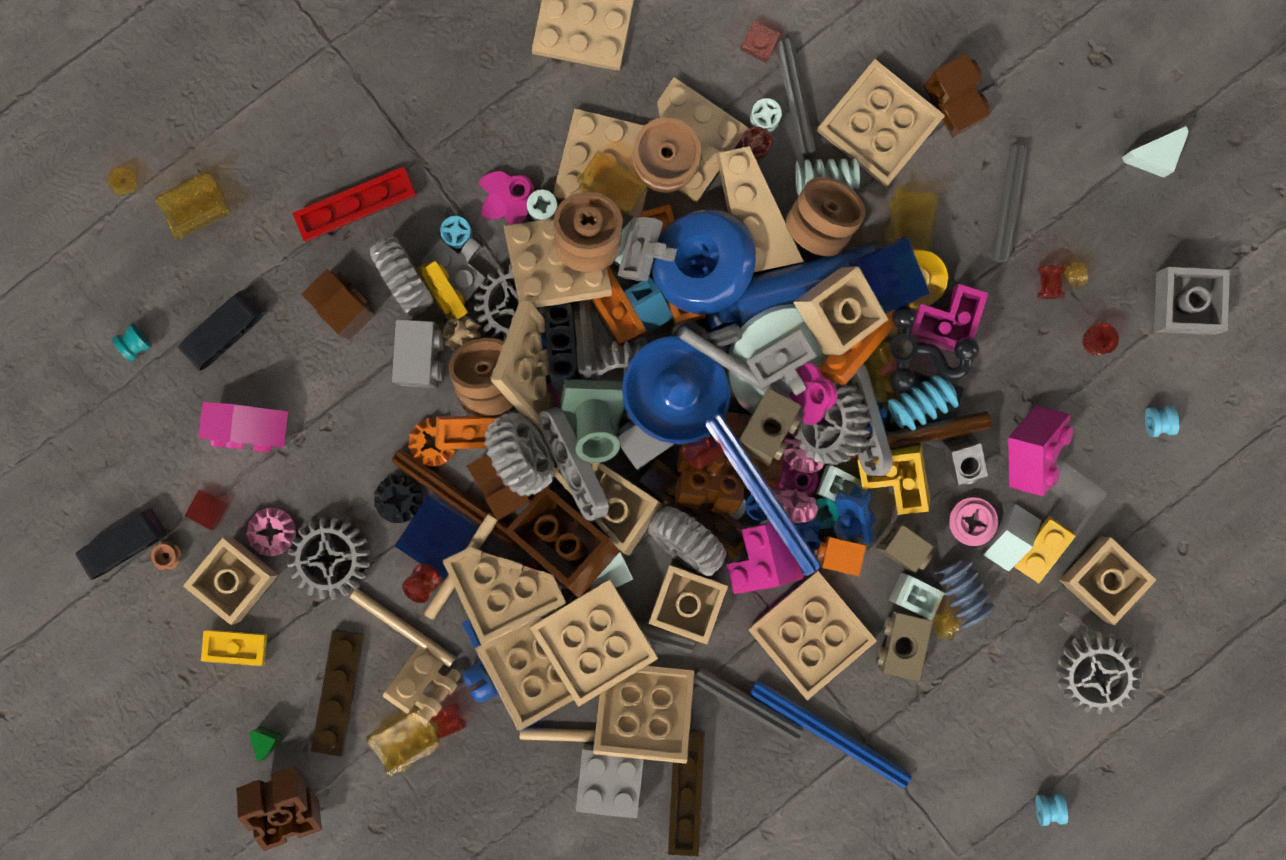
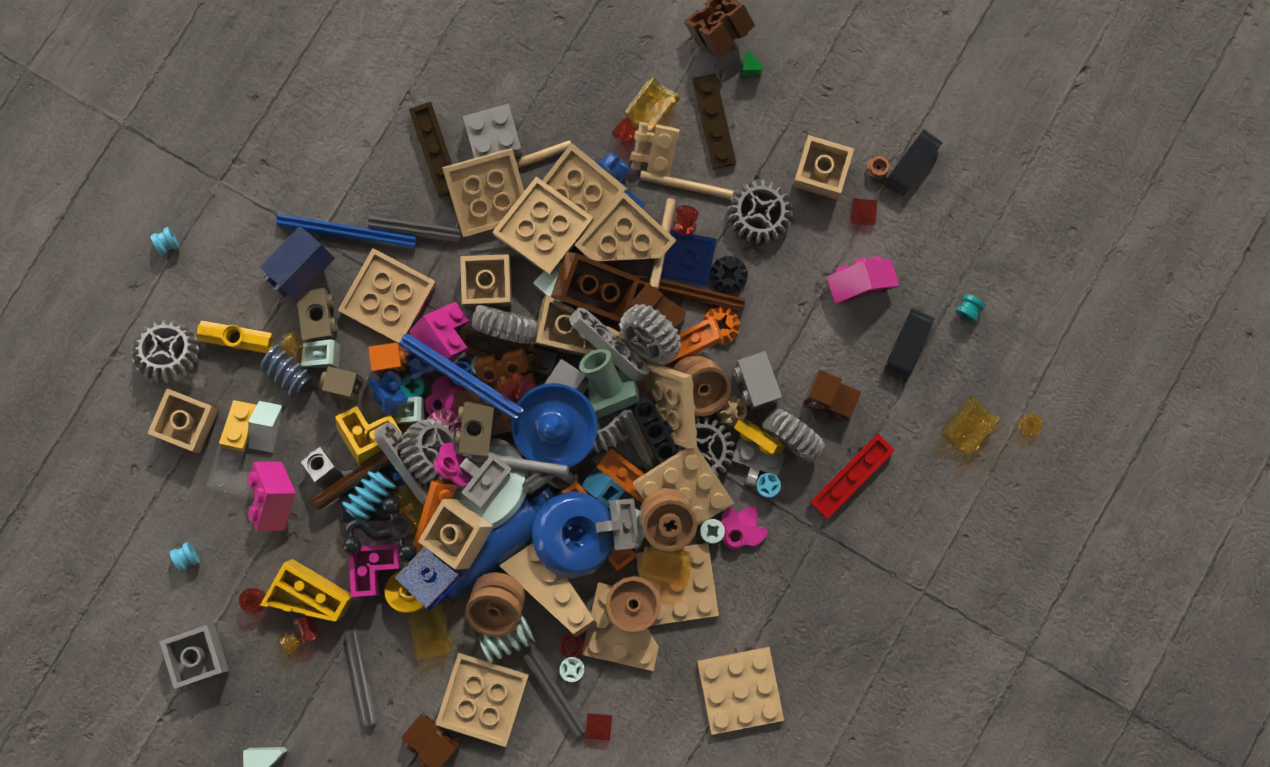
camera: 155 degrees right, 5 degrees down
(234, 647) = (801, 122): yellow plate -> none
(281, 521) = (808, 225): bright pink gear -> none
(805, 506) = (426, 382): bright pink gear -> none
(905, 716) = (296, 263): none -> dark blue brick
(985, 514) = (291, 418): bright pink gear -> none
(1025, 667) = (221, 335): none -> yellow piece
(1035, 321) = (307, 592): none -> yellow wedge

